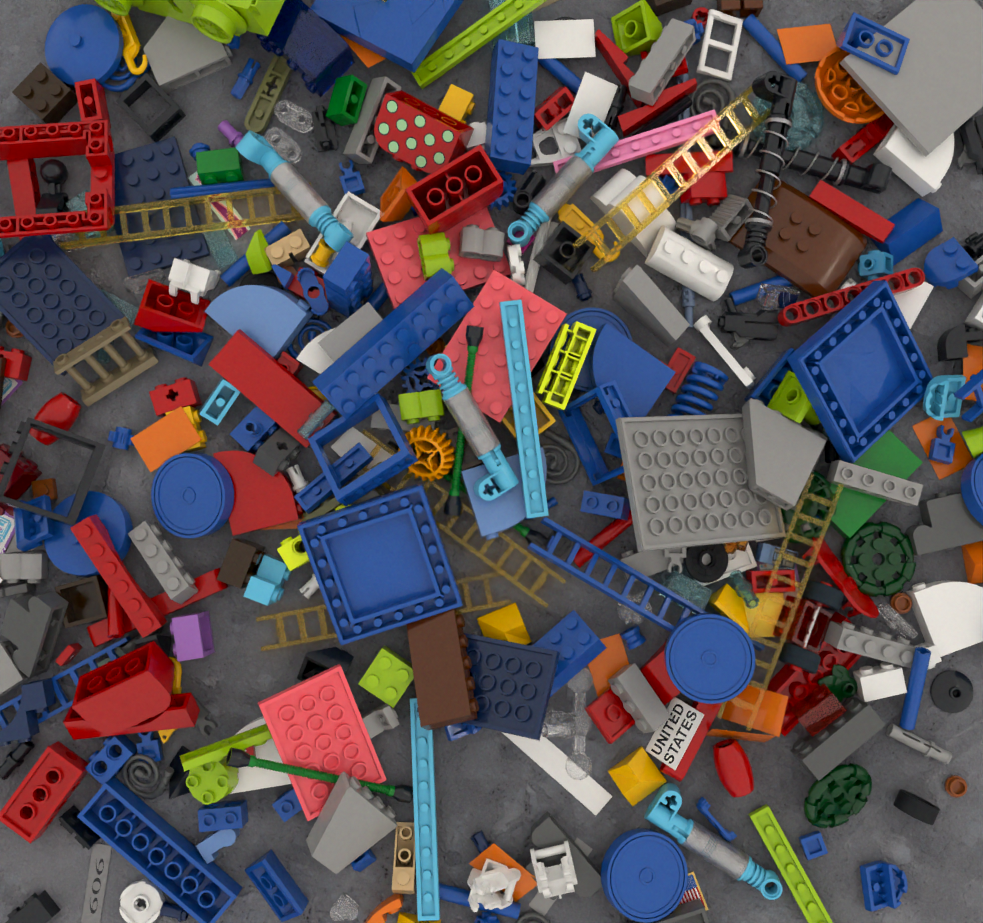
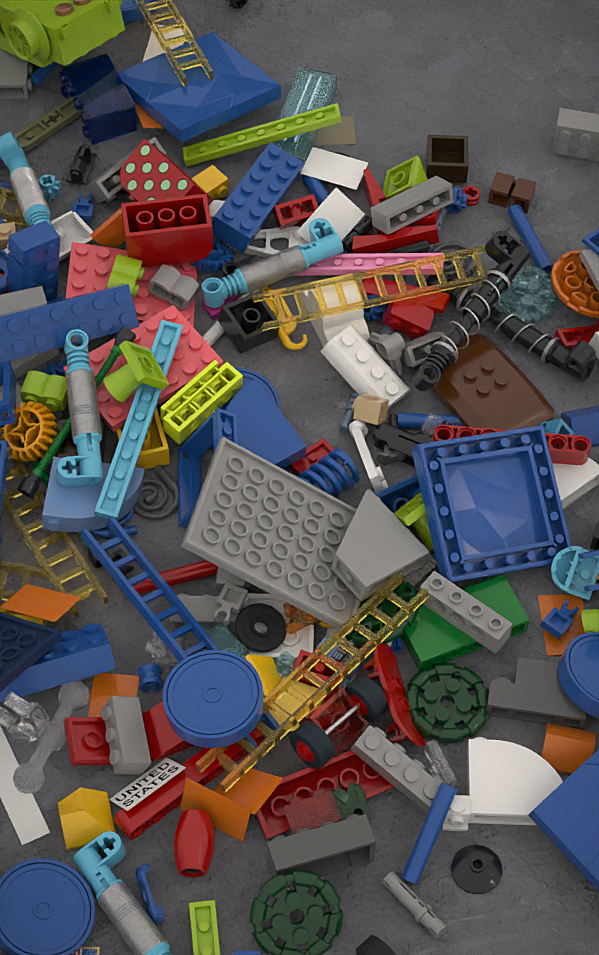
camera: 20 degrees right, 30 degrees down
(245, 79) = (32, 109): blue axle -> none
(284, 146) = (38, 162): clear plate -> none
(292, 116) = (56, 146): clear plate -> none
(302, 165) = (49, 186): none -> medium azure gear
(346, 100) = (112, 148): green brick -> none
(508, 369) = (140, 369): none -> lime plant
(516, 265) = (197, 317): white plate -> none
(516, 612) = (40, 602): none -> orange sticker
(581, 288) = (253, 359): dark blue pin -> none
(605, 505) = (169, 541): blue brick -> none
(649, 305) = (306, 383): light grey slope -> none
(709, 303) = (370, 409): none -> tan brick
(732, 49) = (457, 234): white window -> none
(806, 43) = (557, 241): orange sticker -> none
(852, 212) = (548, 384): red slope -> none
(879, 681) = (395, 816): white brick -> none
(901, 603) = (455, 754): dark orange plate -> none

